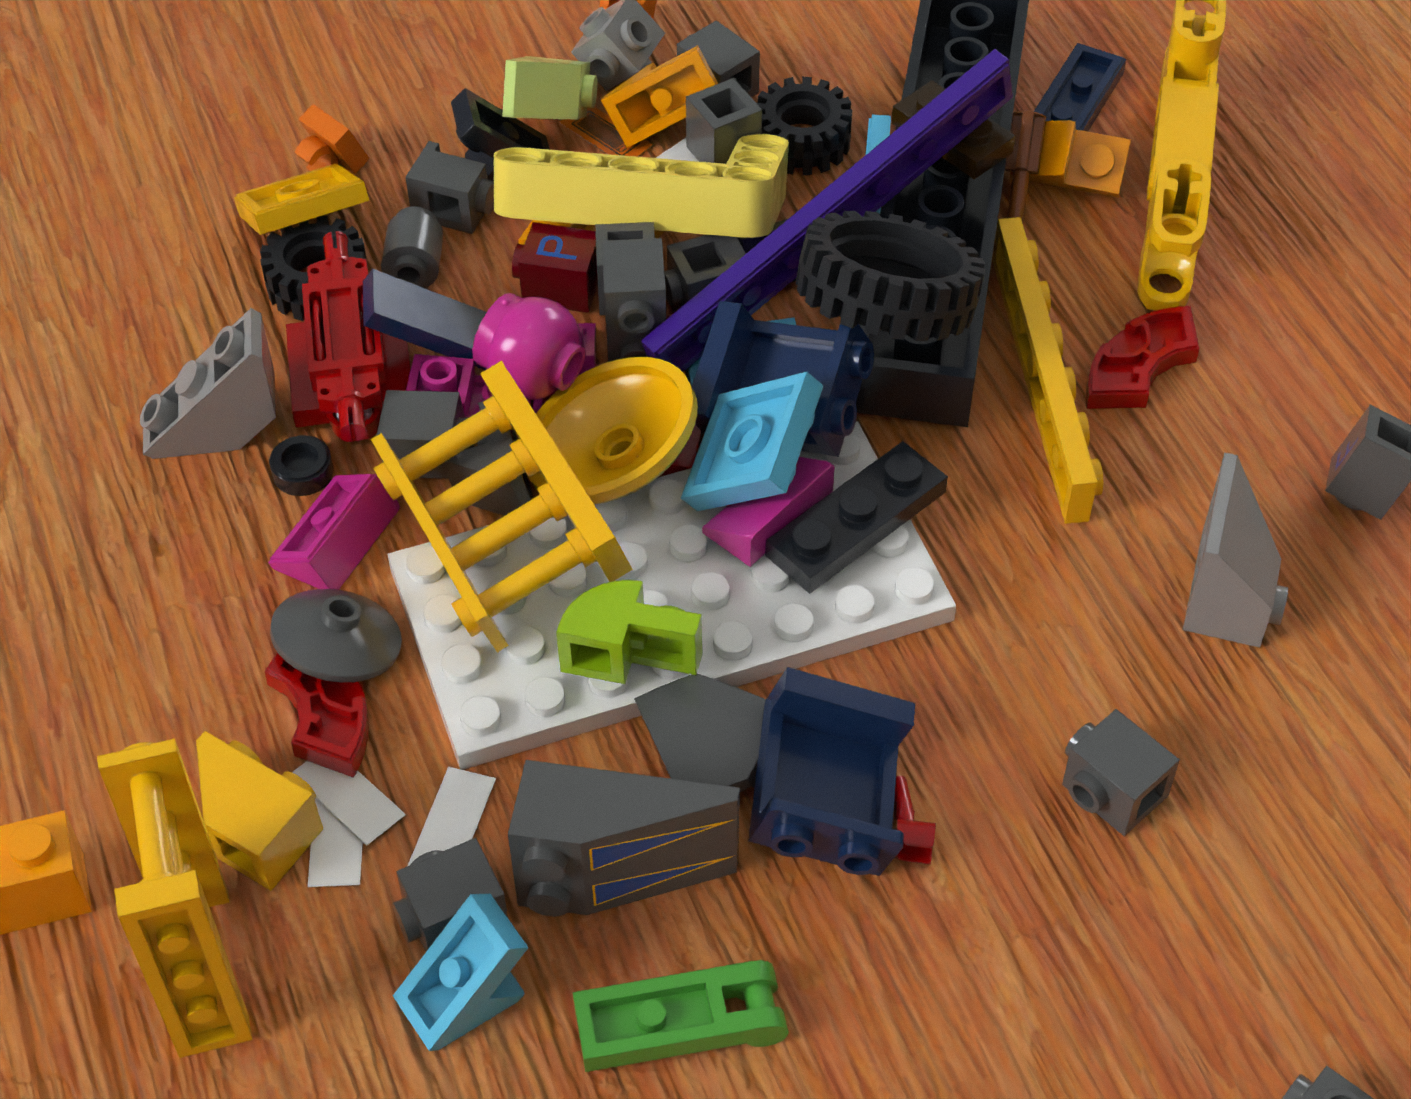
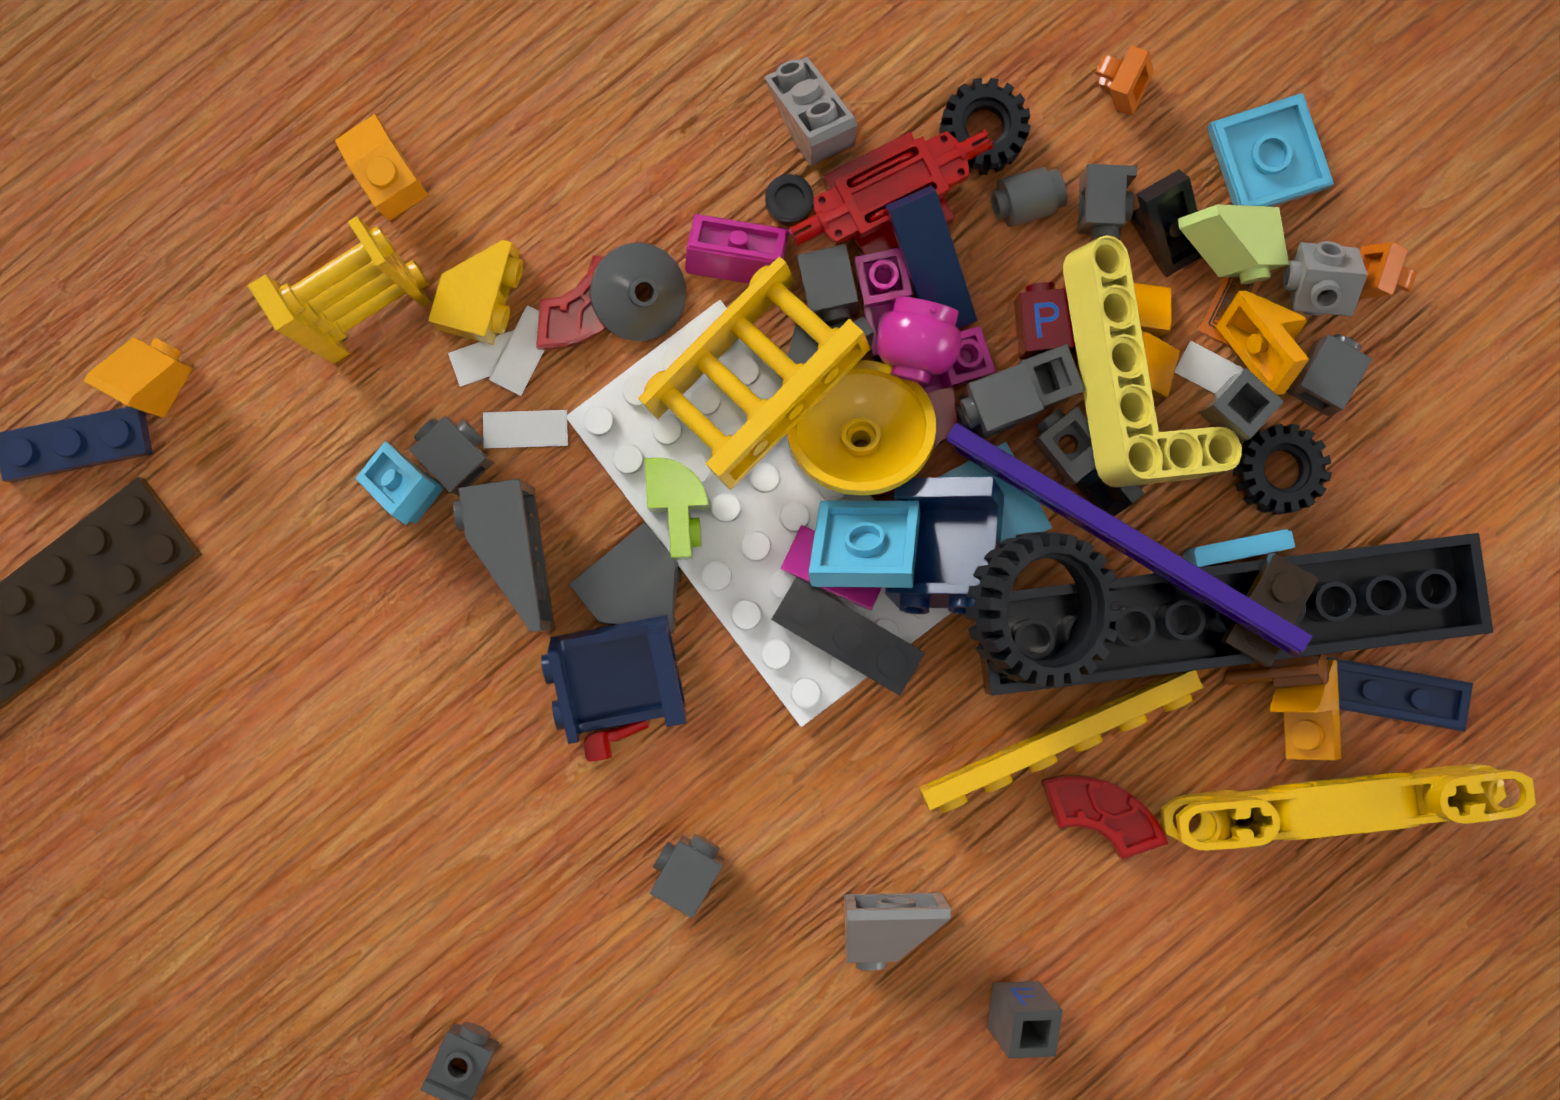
camera: 80 degrees right, 35 degrees up
(300, 198) = (1047, 84): yellow tile -> none
(464, 56) = (1270, 153): none -> medium azure plate
(678, 1015) = (418, 628): bright green plate -> none

